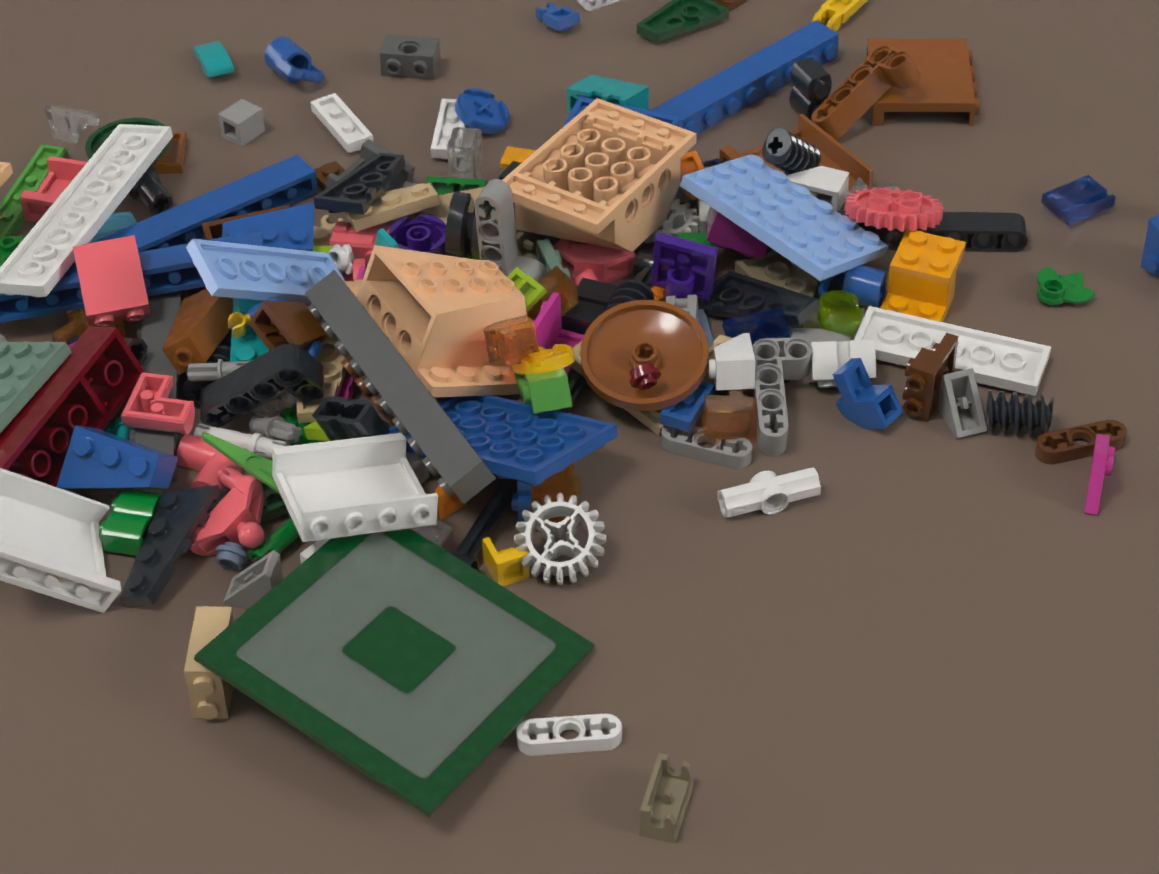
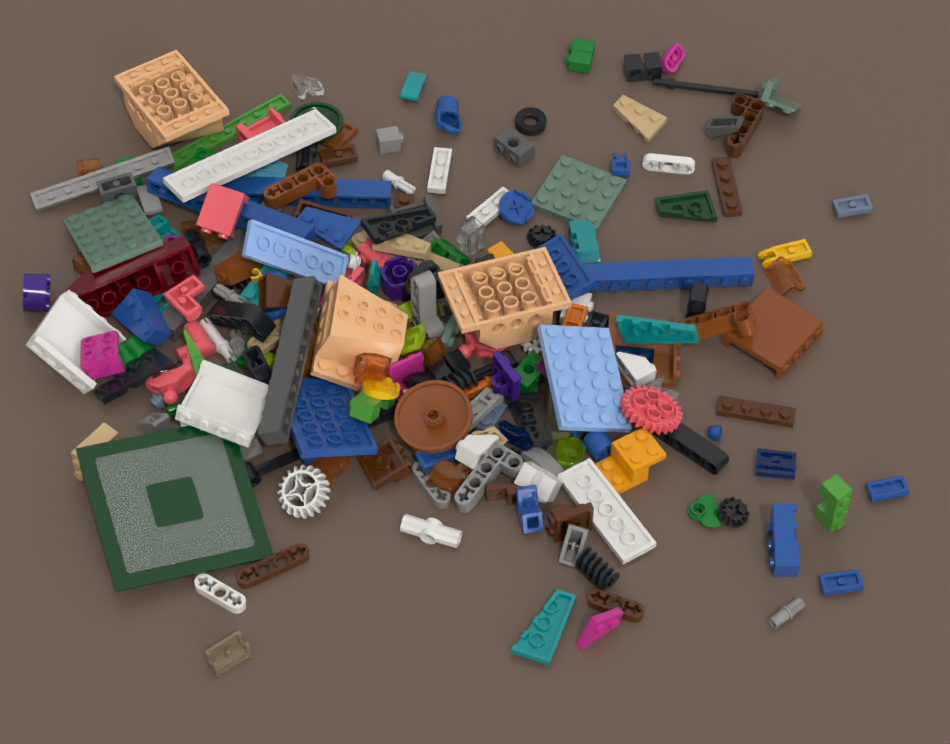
camera: 35 degrees right, 10 degrees up
(100, 535) = (101, 355): none -> dark pink bracket
(188, 202) = (300, 184): none -> dark orange beam
(191, 169) = (338, 155): none -> reddish brown plate
(313, 158) = (398, 182): none -> white axle
(399, 17) = (530, 130): none -> black tyre
(506, 564) = (271, 485): yellow panel -> none
(534, 64) = (578, 192): none -> sand green plate
(535, 126) = (533, 235): none -> black gear
(573, 330) = (418, 377): none -> black gear
(606, 657) = (275, 569): none -> reddish brown beam
(631, 455) = (387, 464): none -> reddish brown plate
(644, 376) = (419, 429): dark red plate -> none
(789, 152) = (631, 340): black piece -> none
(814, 126) = (651, 331): none -> teal wing
(814, 396) = (500, 491): none -> reddish brown slope
(860, 25) = (784, 276): none -> clear orange panel
(975, 204) = (715, 432): none -> blue hinge
(990, 165) = (756, 411): none -> reddish brown plate
(1036, 516) = (546, 629): none -> teal wing
(1093, 270) = (725, 512): none -> black gear

